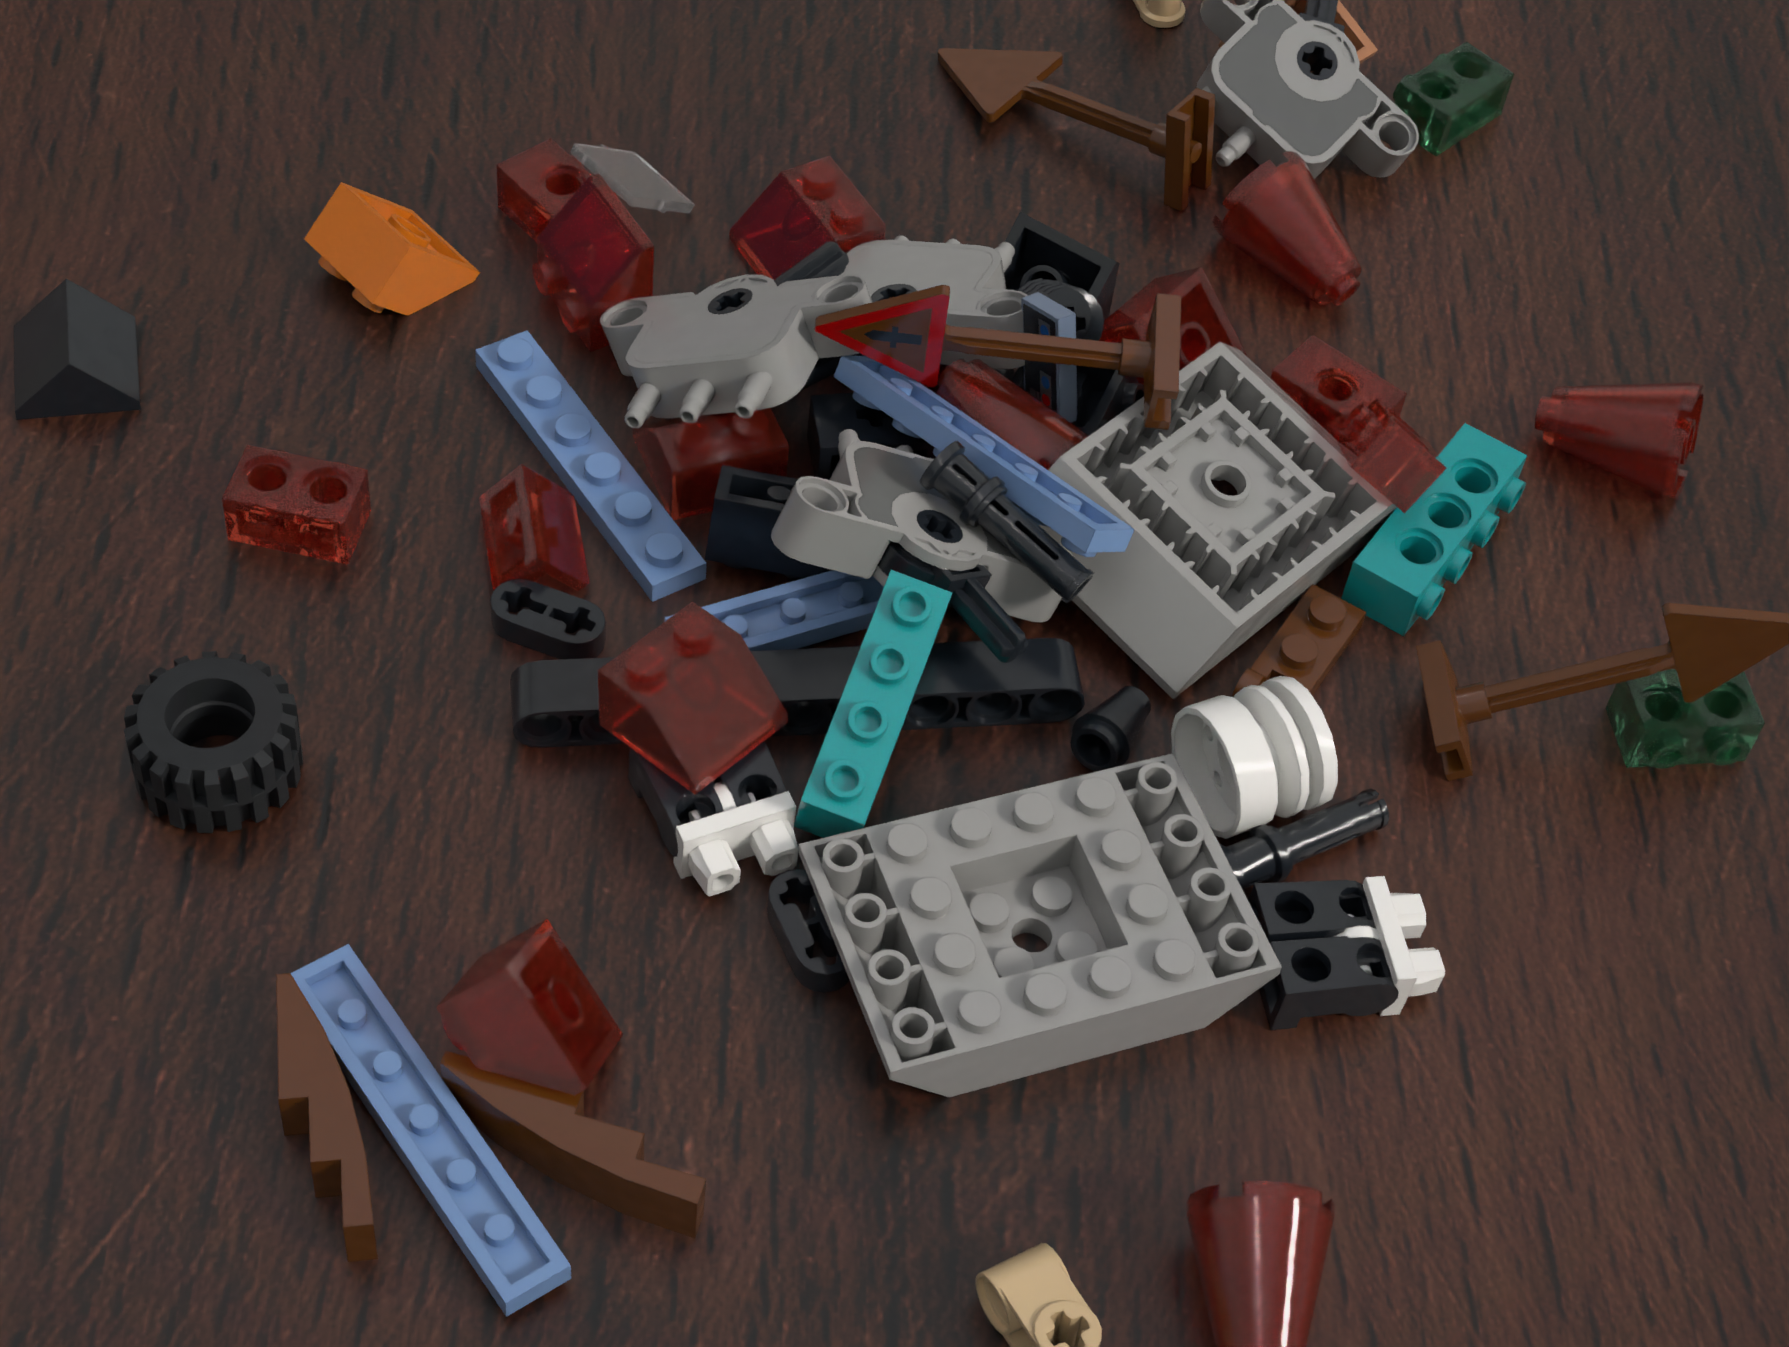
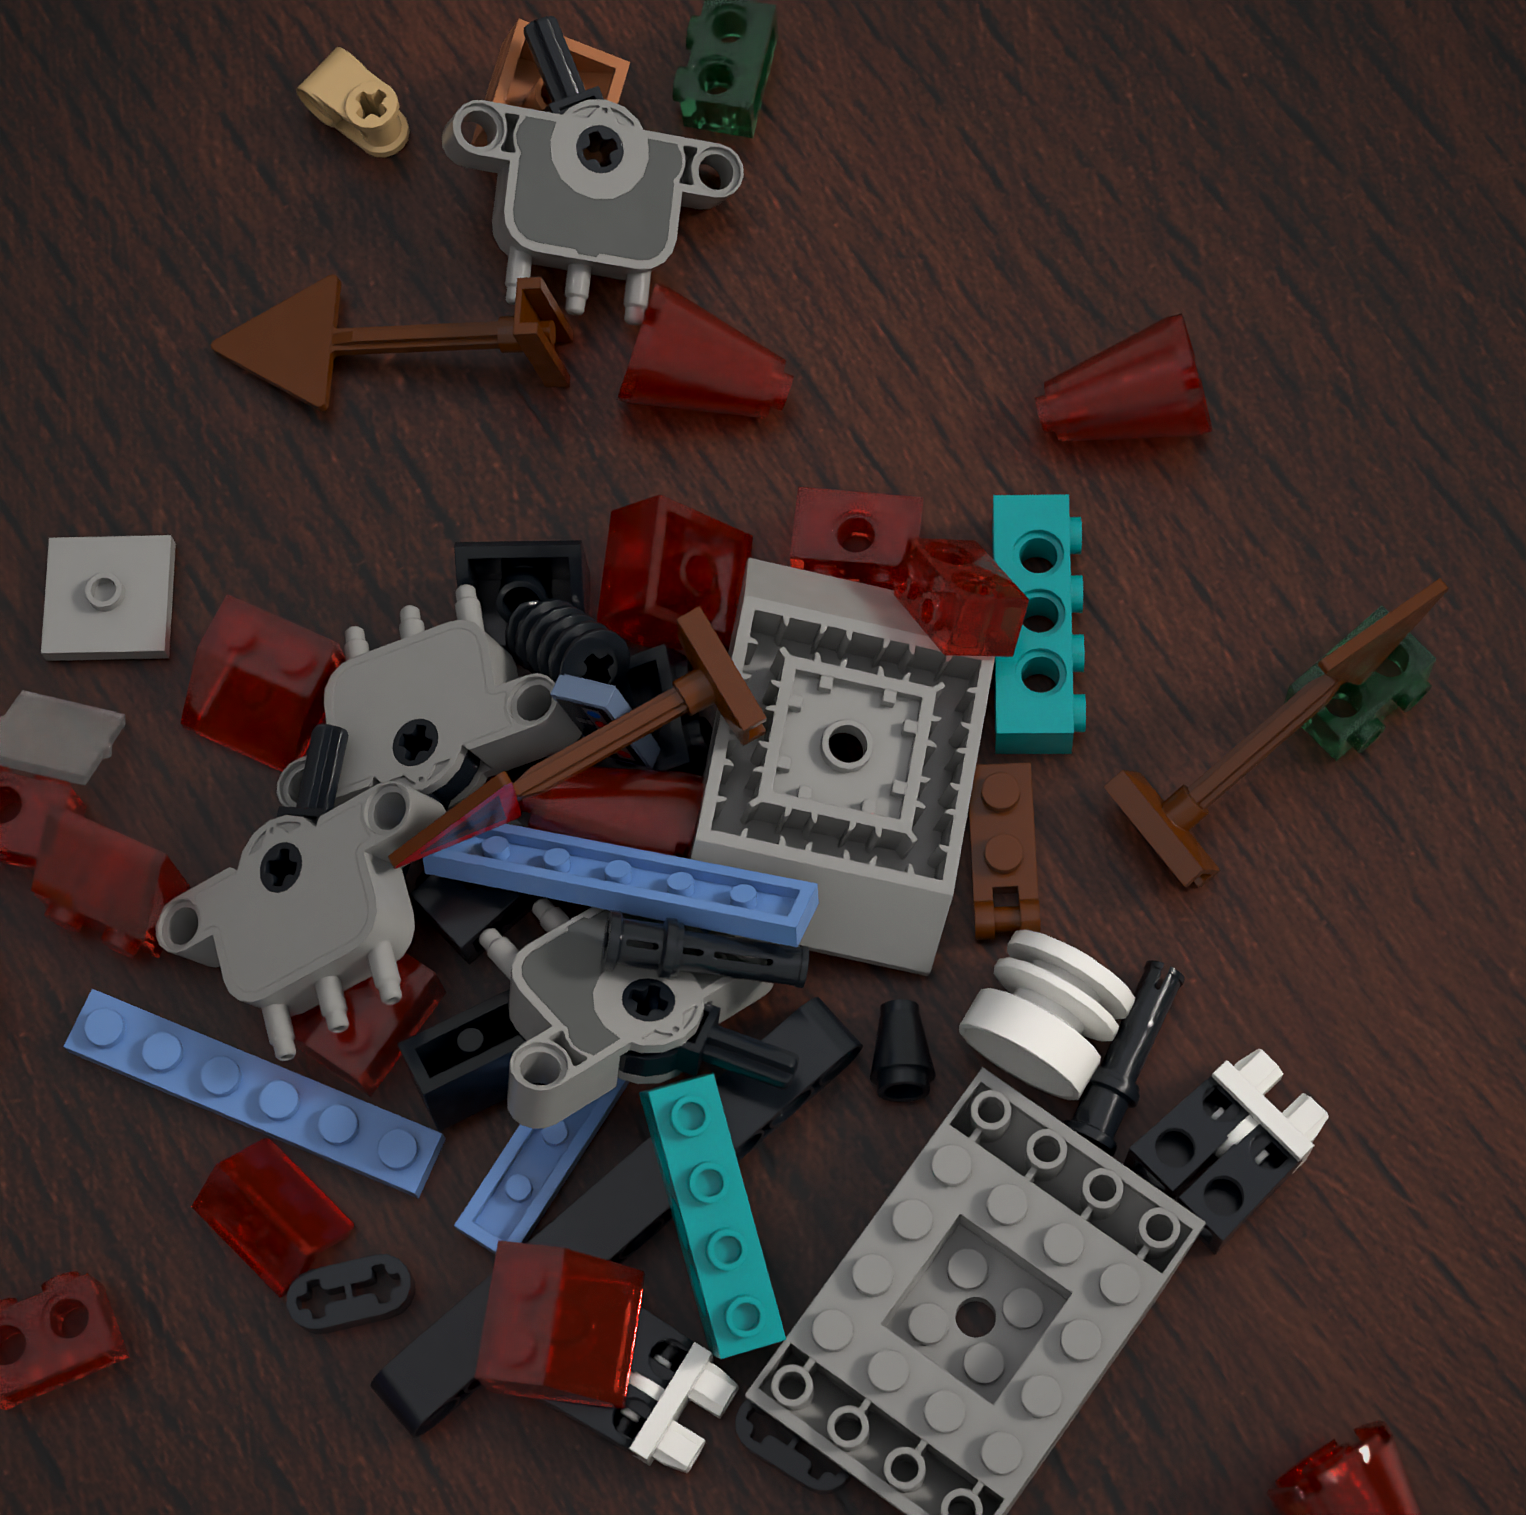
camera: 20 degrees left, 20 degrees up
(742, 137) = (108, 598): none -> light grey plate

